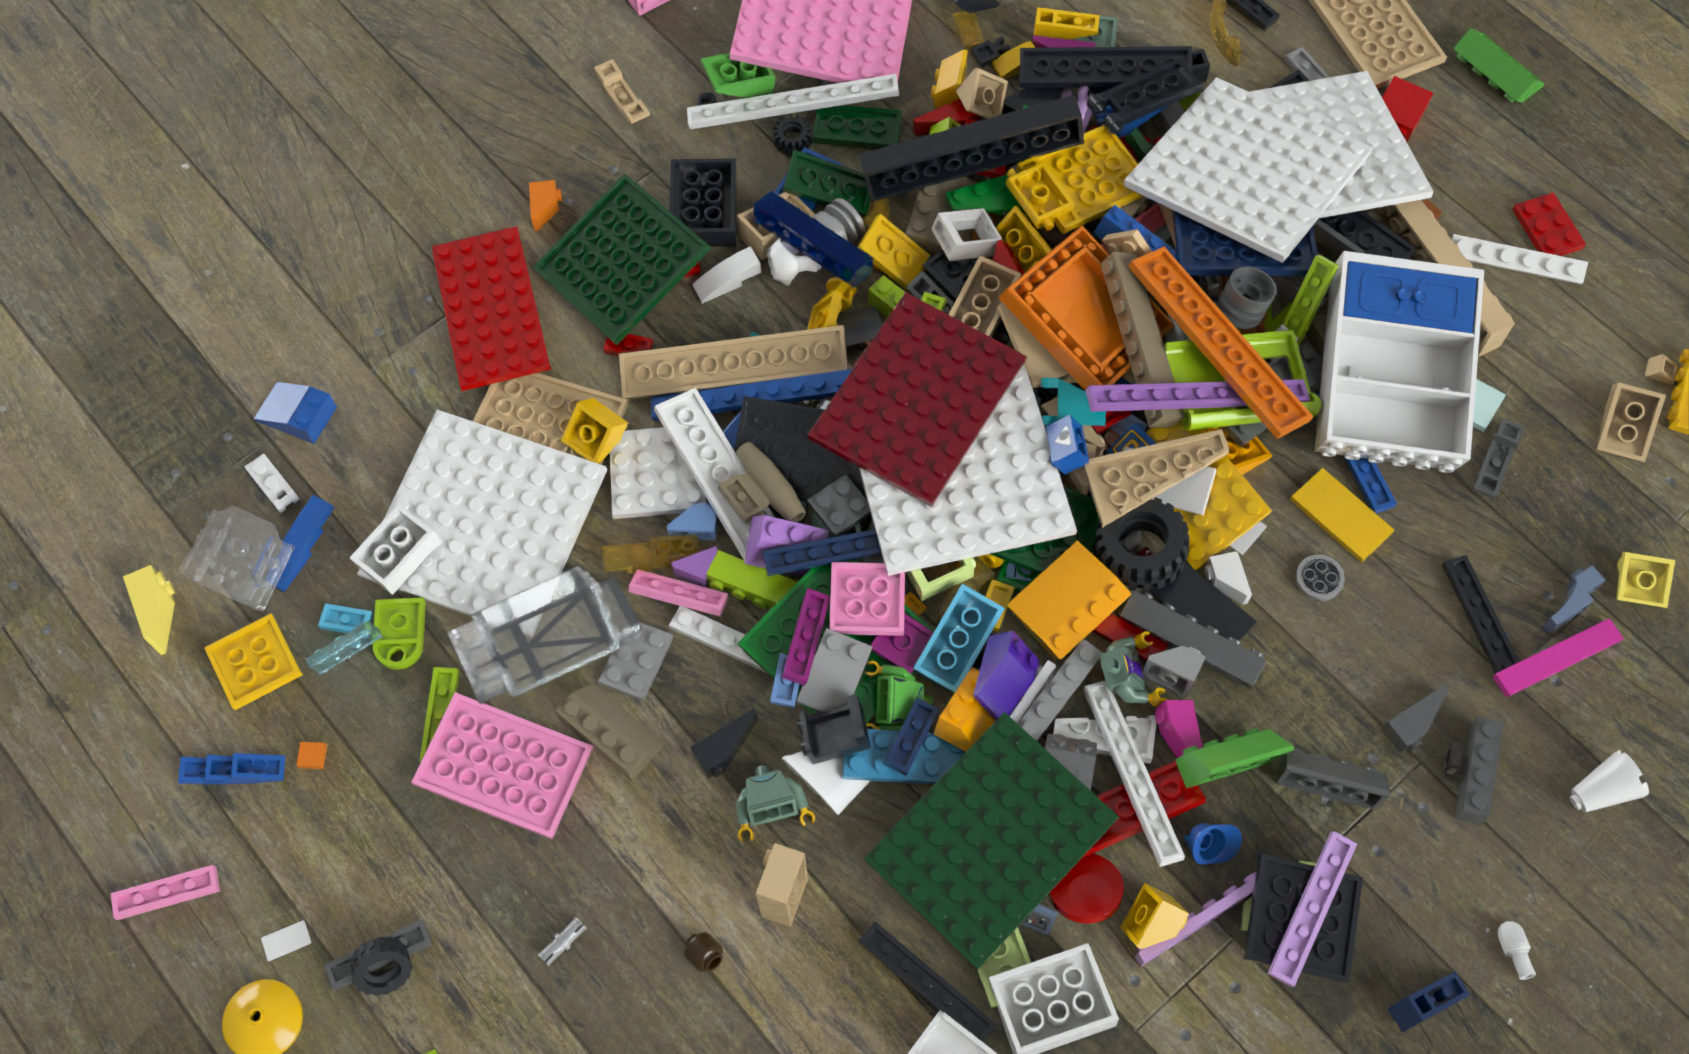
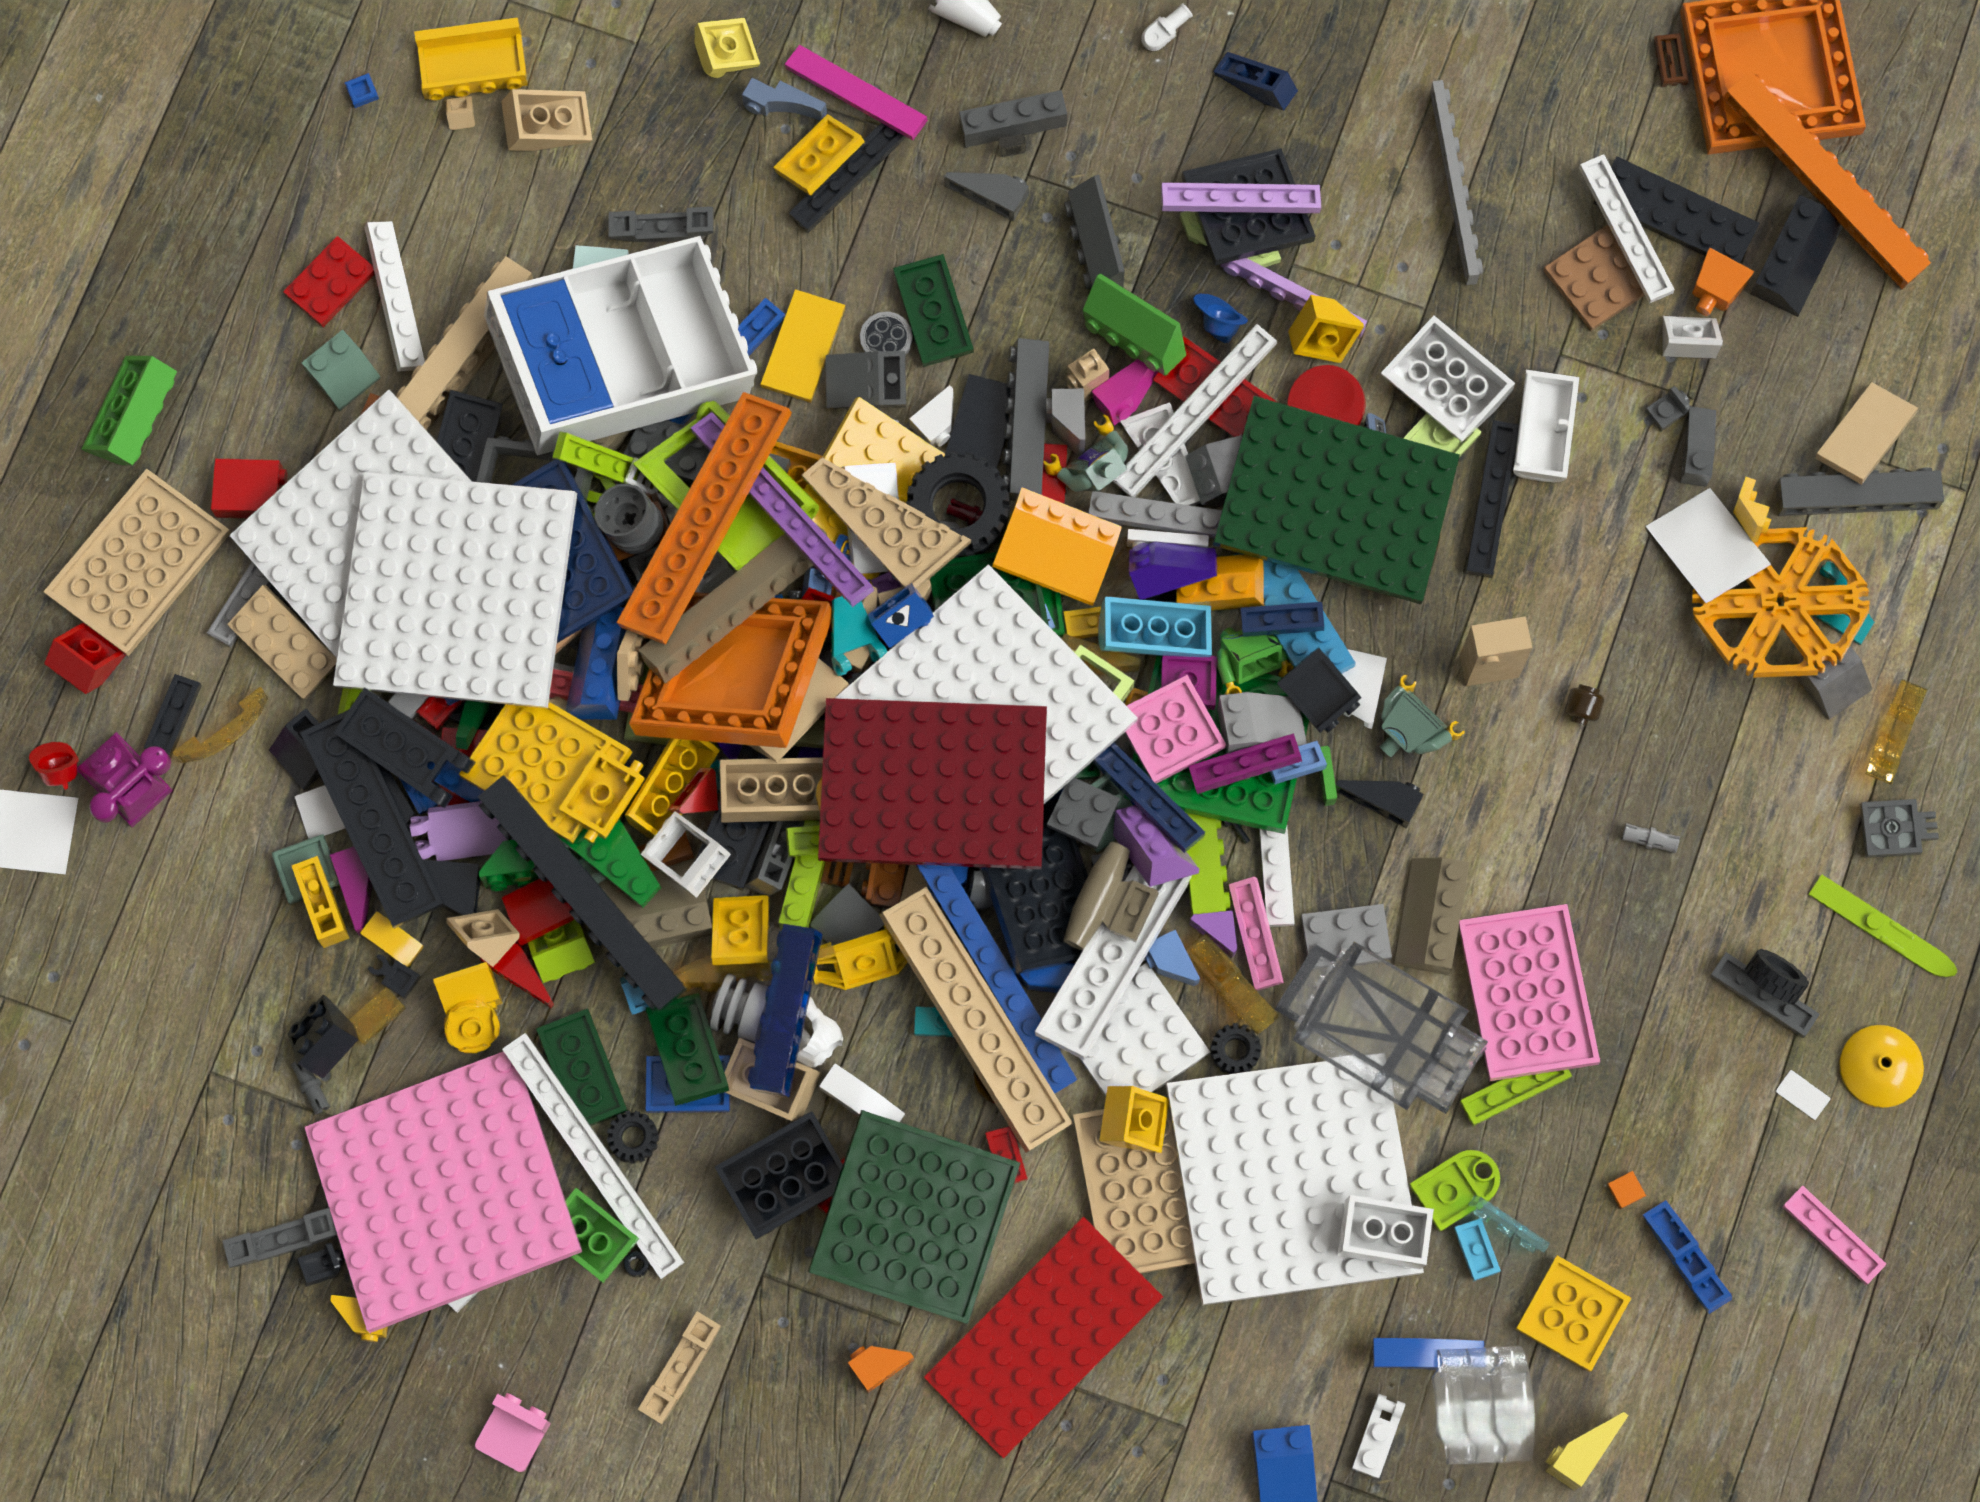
camera: 120 degrees left, 10 degrees up
(594, 523) = (1240, 1033): none -> black tyre
(769, 711) = (1327, 779): none -> bright green tile
(926, 74) = (471, 1026): none -> yellow tile
(1208, 701) = (1087, 373): none -> tan brick
(1276, 74) = (283, 642): none -> tan plate
(1285, 541) = (872, 376): none -> dark grey slope
(1327, 622) = (933, 310): none -> dark green plate
(1470, 200) = (341, 370): none -> sand green slope
(1510, 601) = (818, 154): none -> yellow plate

